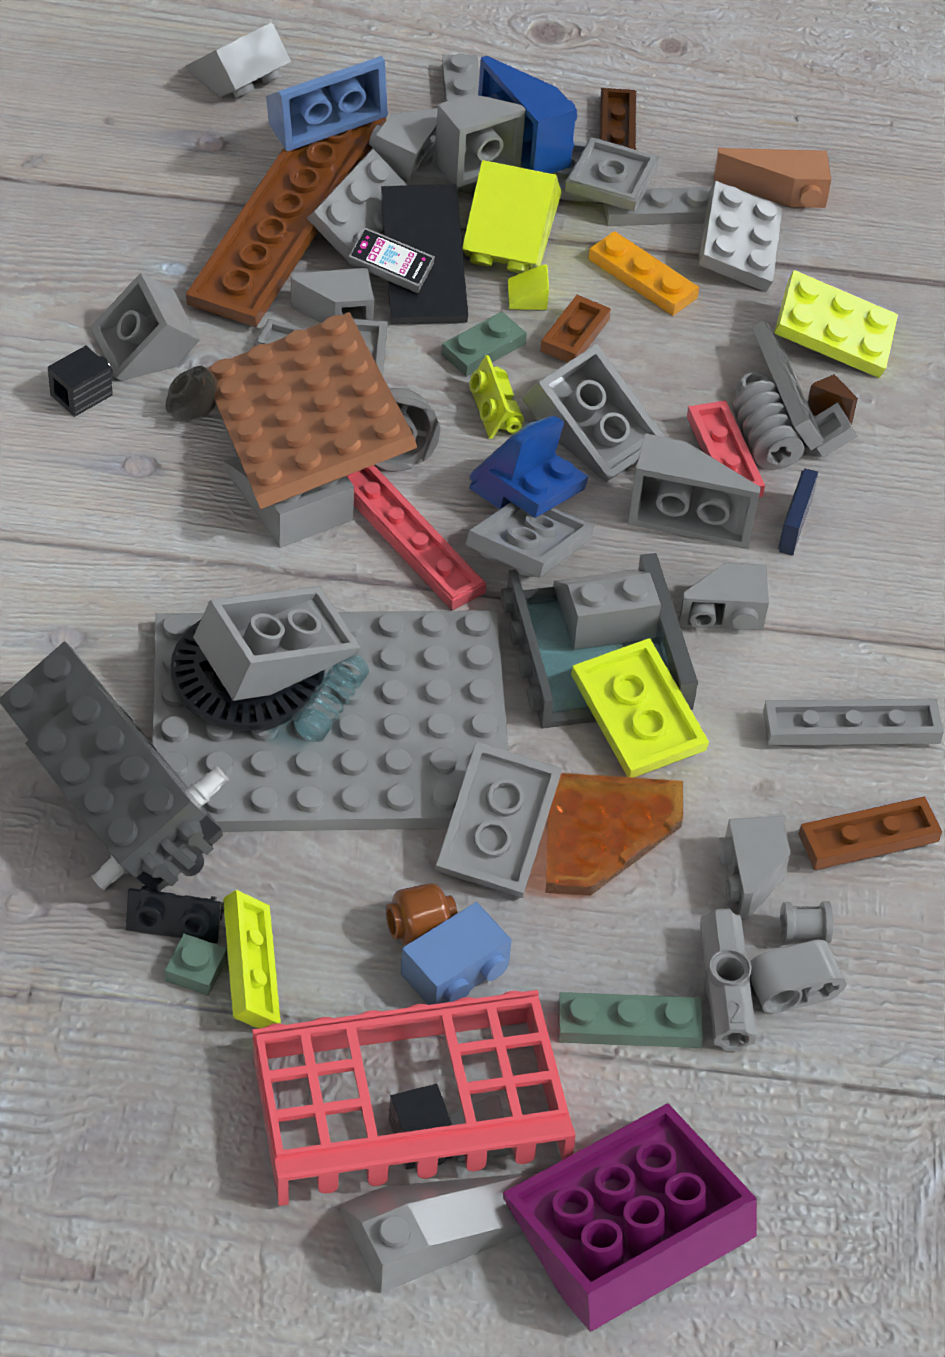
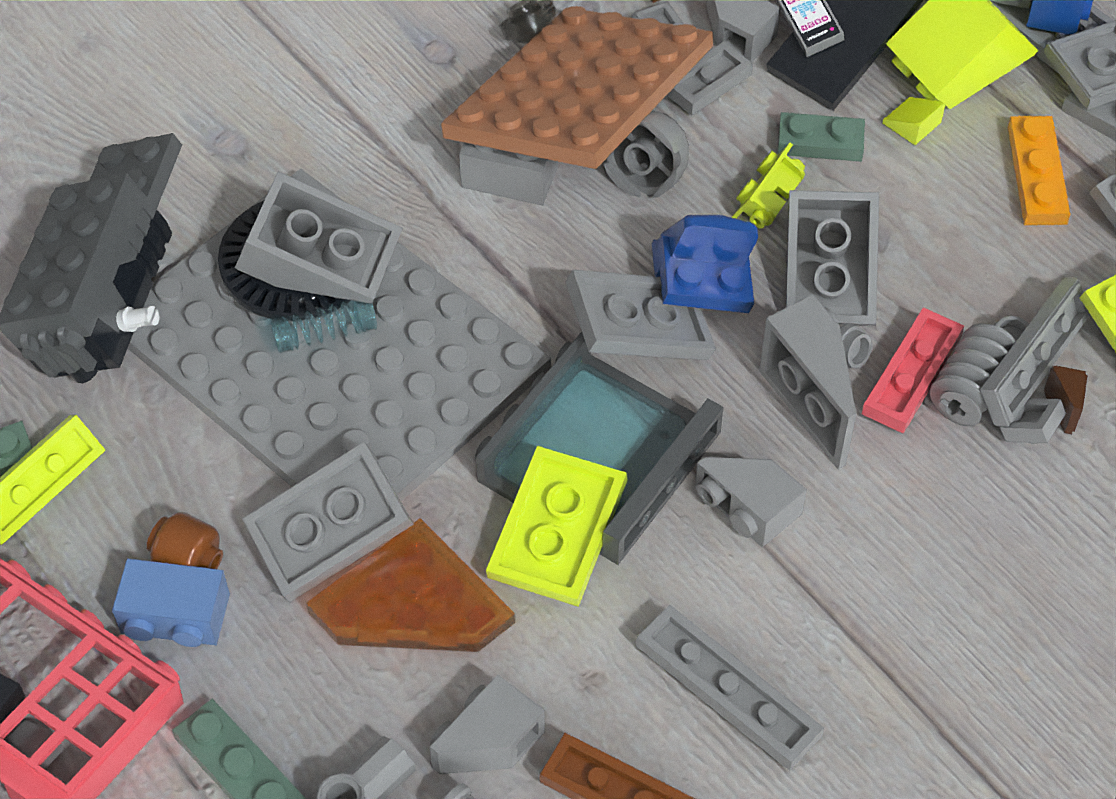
camera: 50 degrees right, 5 degrees up
(173, 914) = (29, 391): black hinge -> none
(415, 539) = (565, 249): coral tile -> none
(575, 329) = (910, 175): dark orange plate -> none
(609, 608) = (632, 418): light grey slope -> none
(798, 511) = (910, 468): dark blue tile -> none

